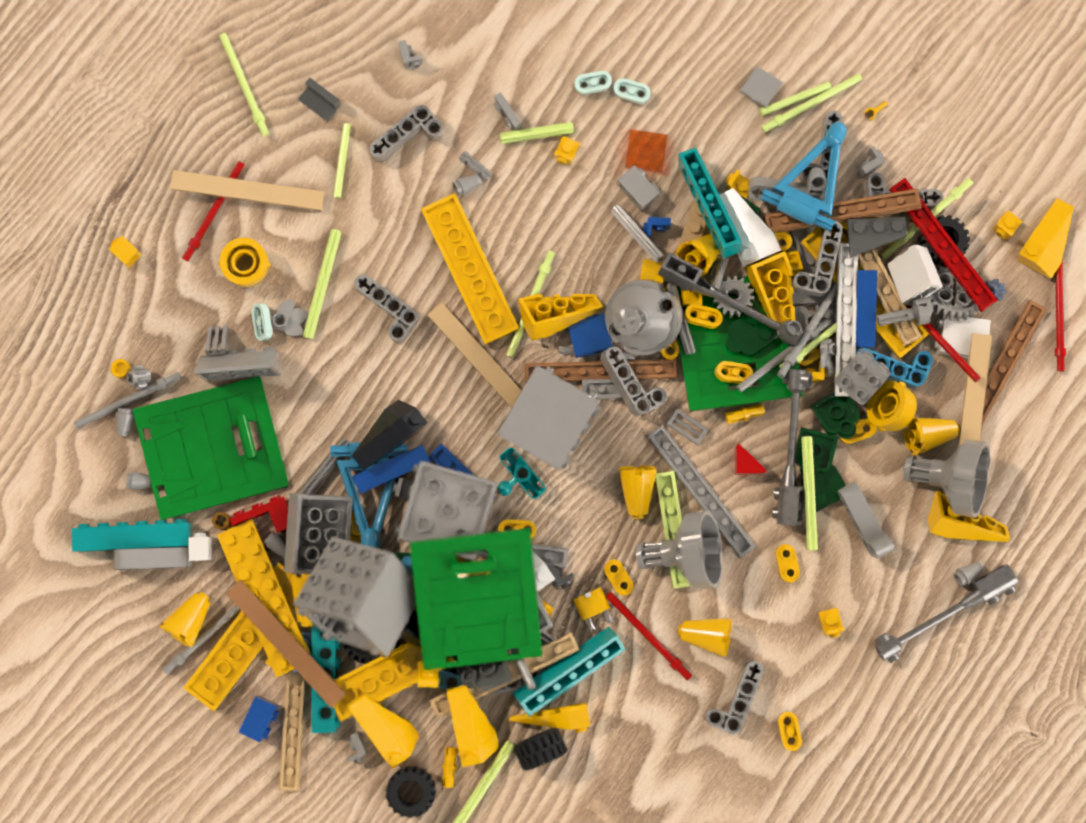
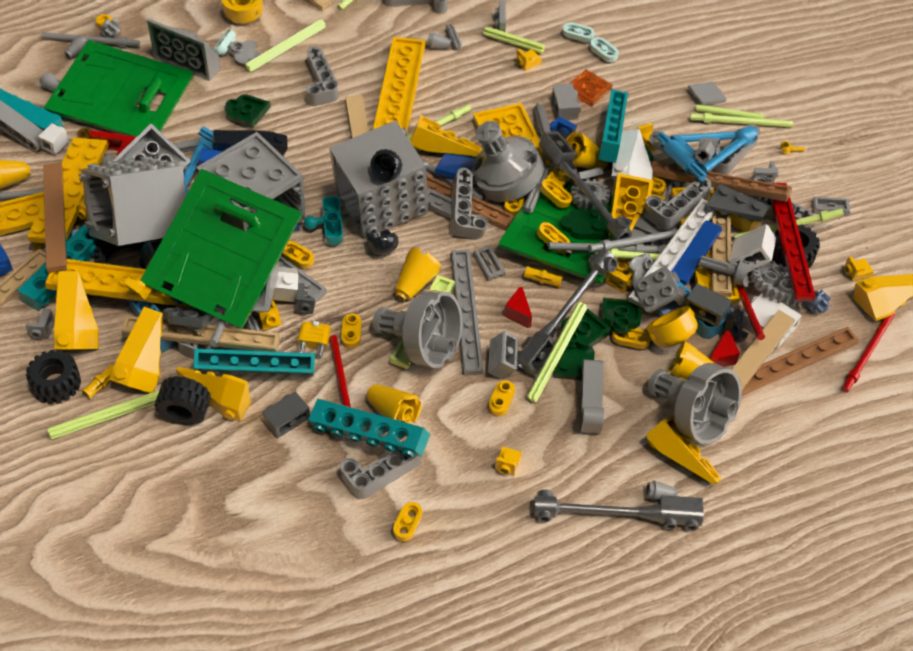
camera: 30 degrees right, 30 degrees down
(347, 392) = (246, 110): none -> dark green plate
(570, 432) = (386, 165): none -> black hair
(583, 469) = (382, 242): none -> black hair
(602, 257) = (511, 119): none -> yellow plate
(626, 698) = (286, 414): none -> dark grey brick
(736, 665) = (413, 445): none -> teal brick
(766, 525) = (503, 354): none -> light grey brick
(819, 189) = (707, 148): none -> light grey piece
(912, 368) = (708, 304): none -> dark grey brick
(932, 169) = (830, 204): none -> light grey tile
(940, 368) = (734, 323): none -> black bracket
(944, 397) = (726, 351): none -> red slope

